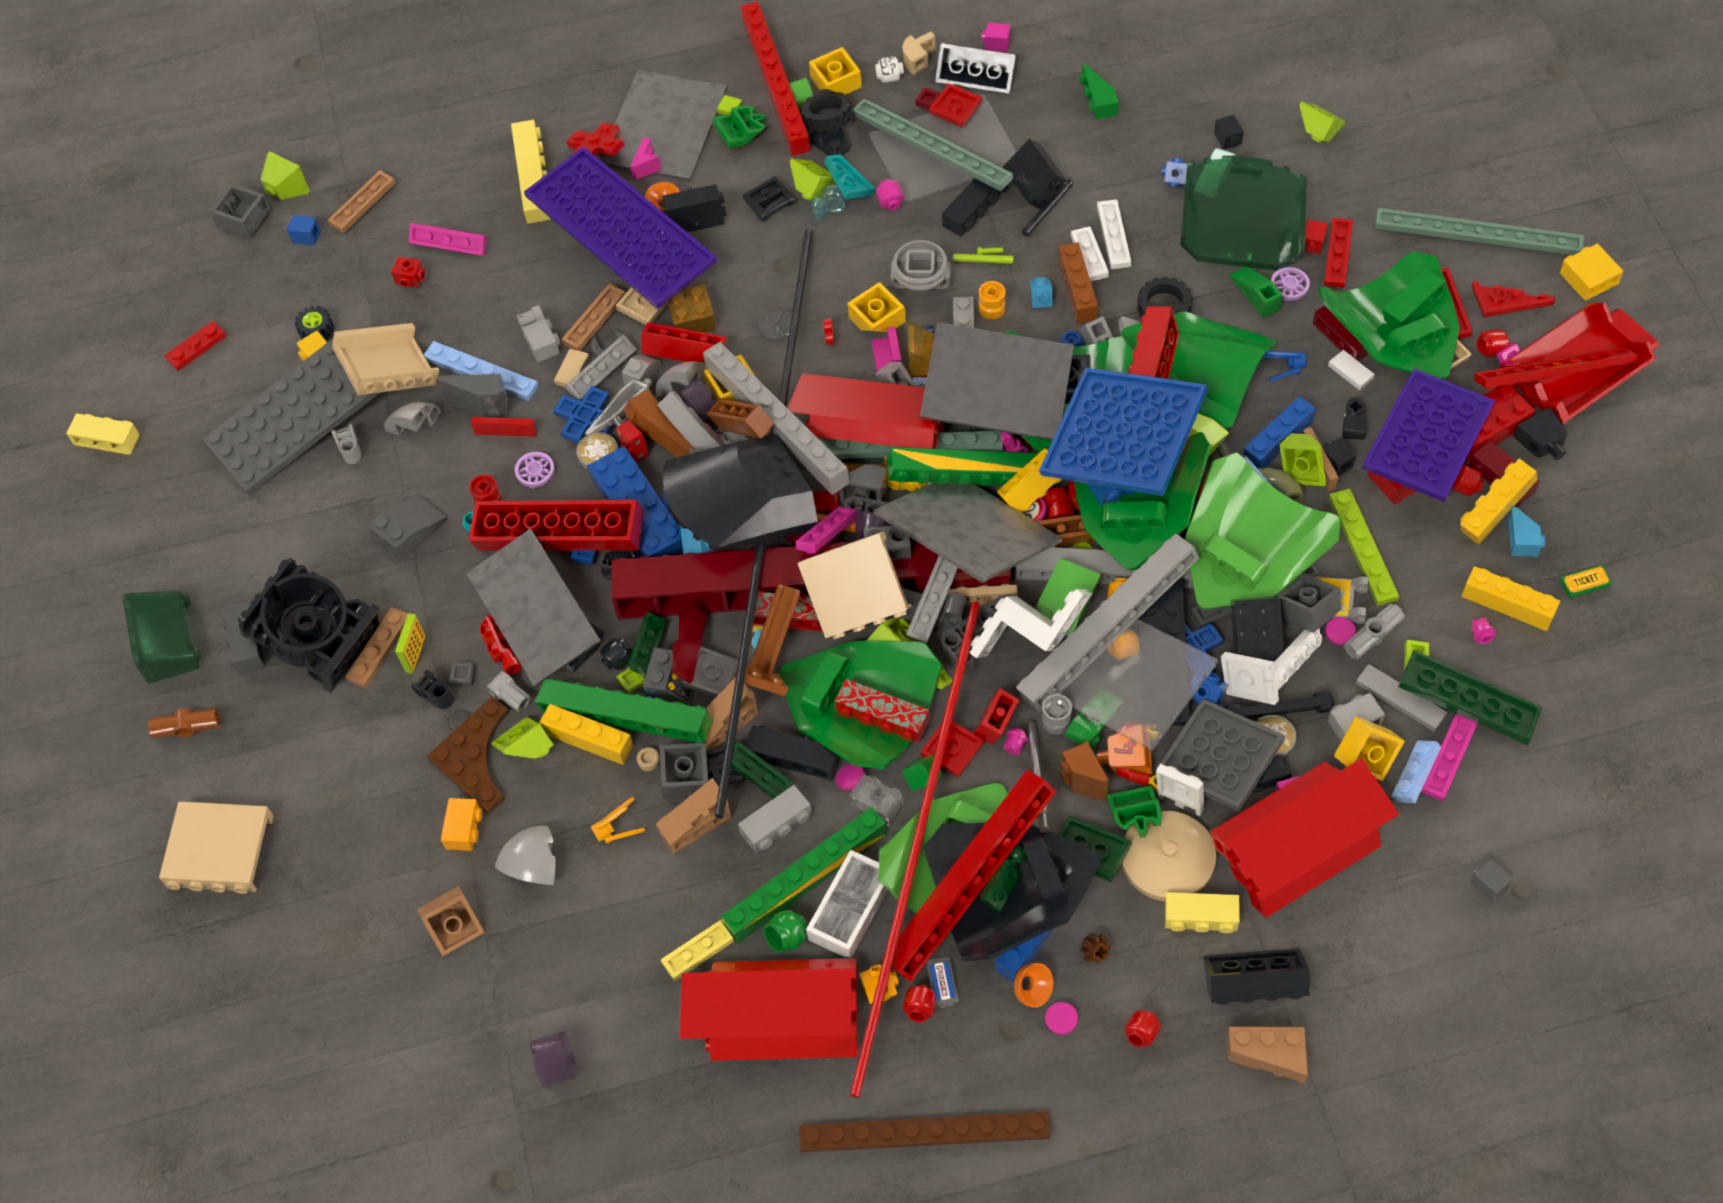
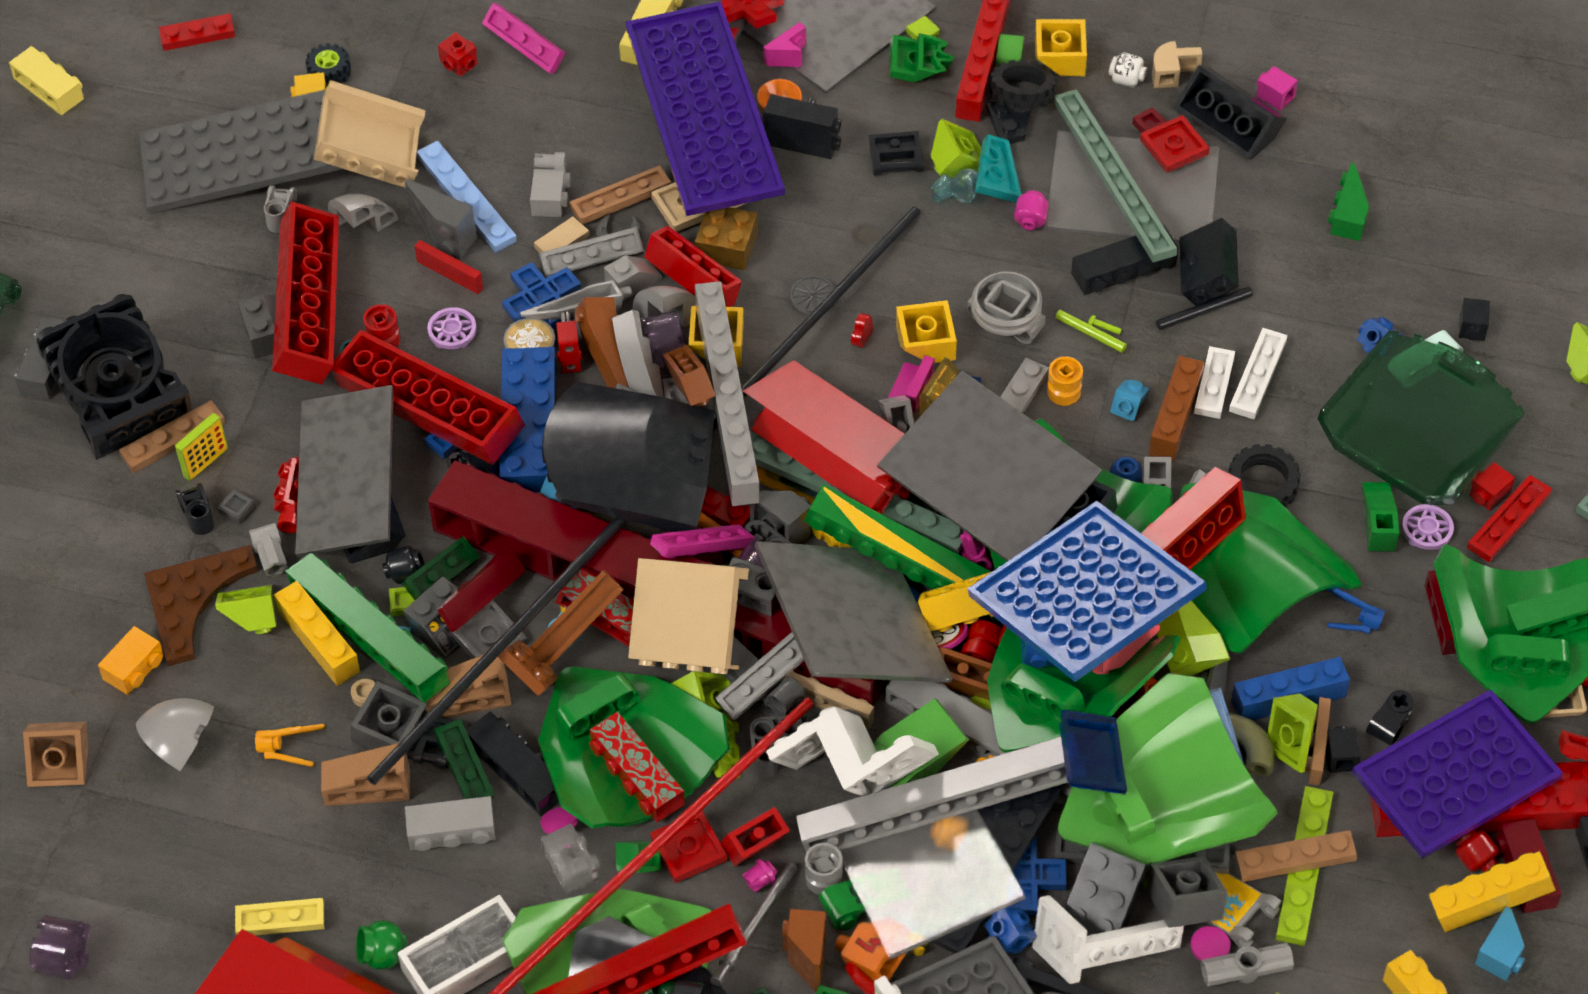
camera: 25 degrees right, 5 degrees down
(415, 494) = (306, 293): none -> red brick
(803, 875) = (438, 896): green brick -> none
(1200, 539) = (1092, 752): none -> clear blue piece
(1351, 370) = (1431, 660): white tile -> none
(1358, 542) = (1296, 856): none -> medium nougat plate

